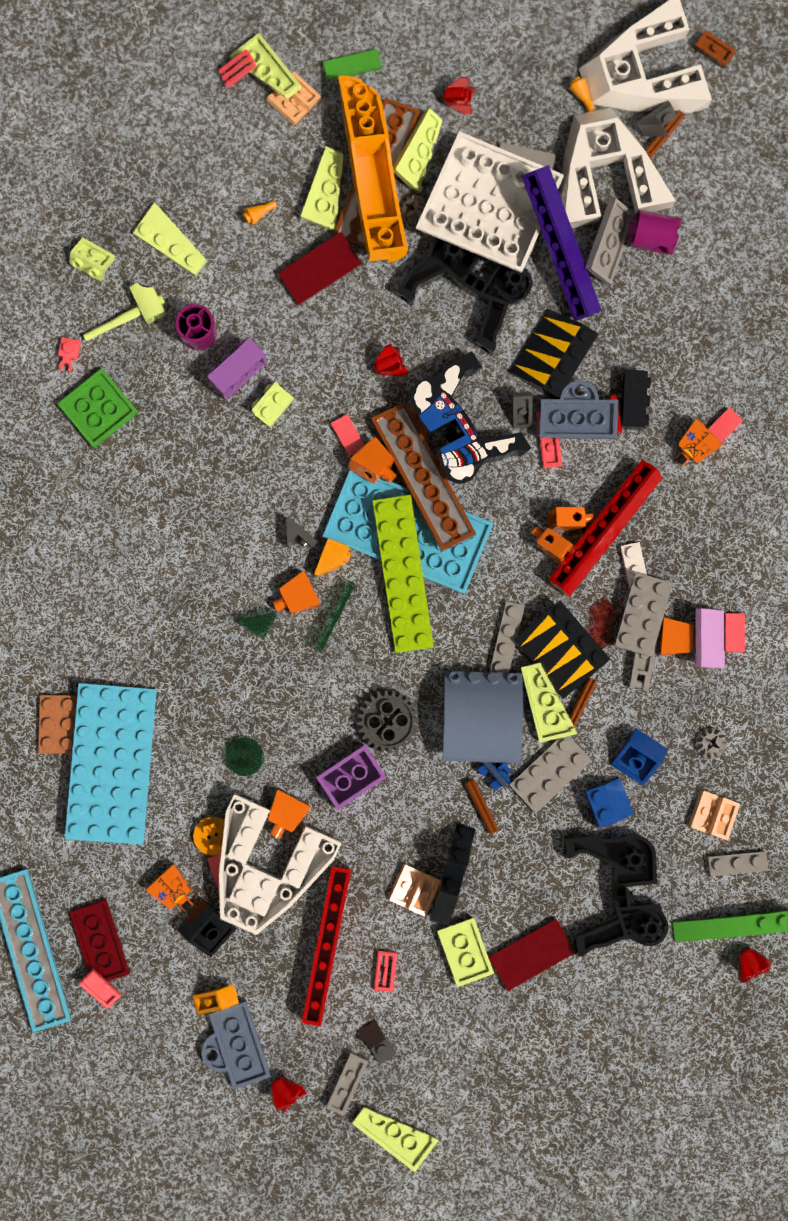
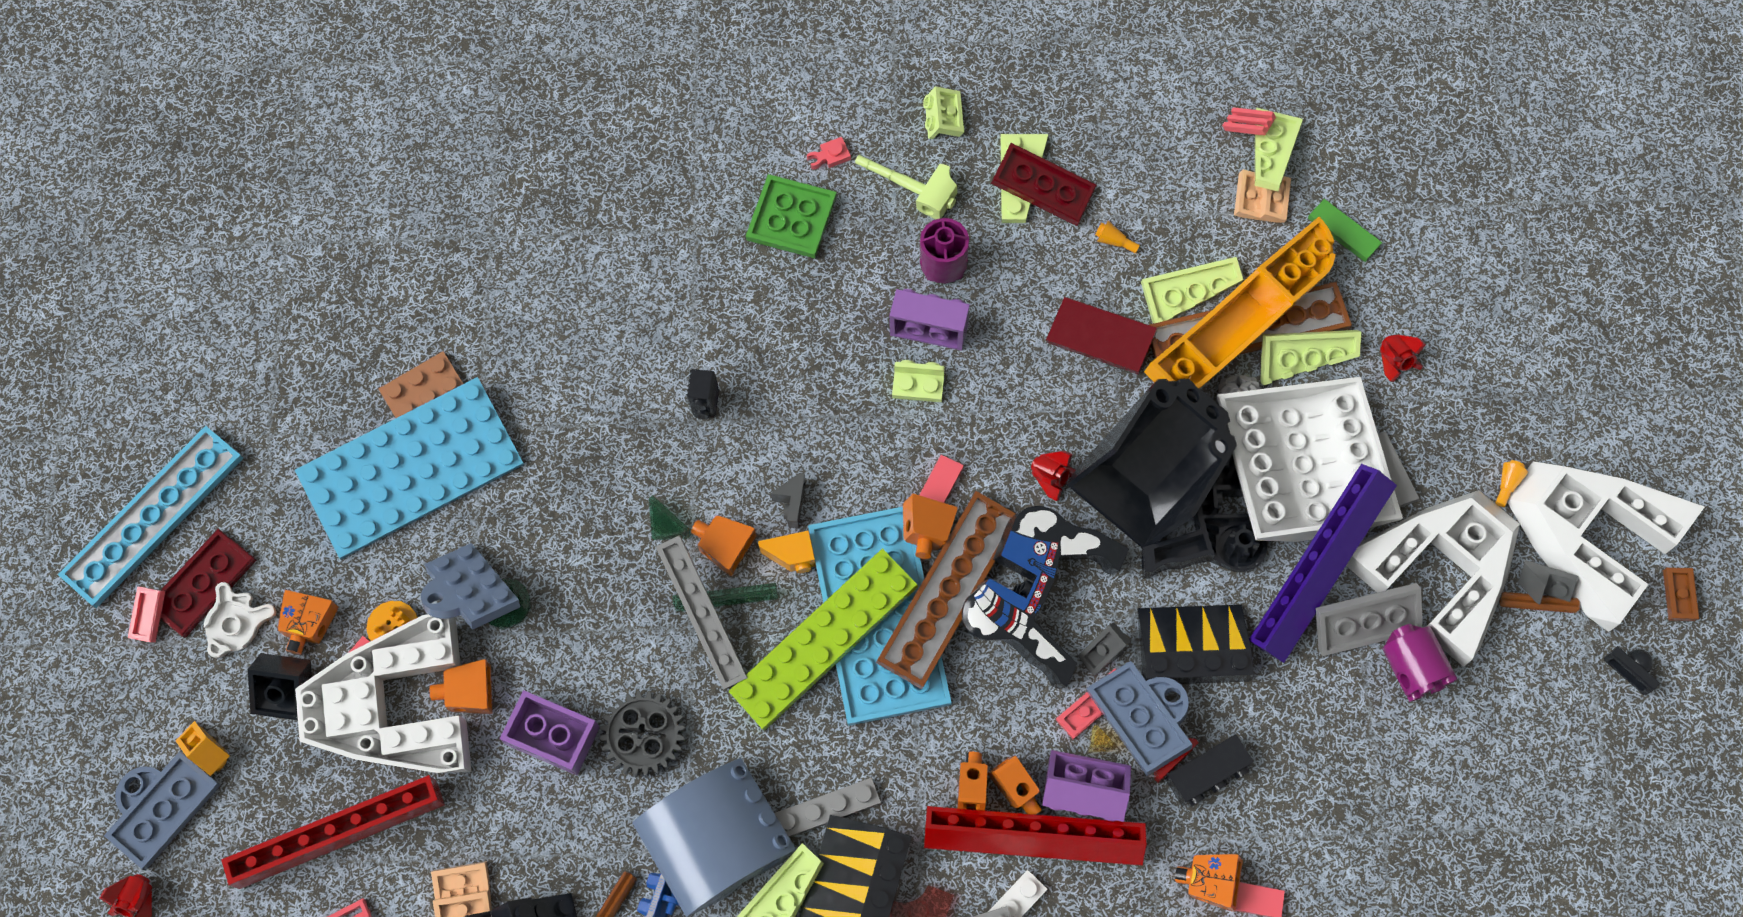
camera: 65 degrees right, 15 degrees down
(141, 936) = (233, 621): none -> white tile
(189, 230) = (1043, 184): none -> dark red tile
(190, 545) = (702, 393): none -> black brick
(224, 773) = (466, 588): none -> sand blue plate
(337, 637) = (701, 612): none -> light grey plate
(435, 295) = (1157, 461): none -> black windscreen
(574, 451) = (1099, 741): none -> clear yellow slope
(598, 477) = (1087, 786): none -> medium lavender brick
(738, 111) = (1633, 668): none -> black tile

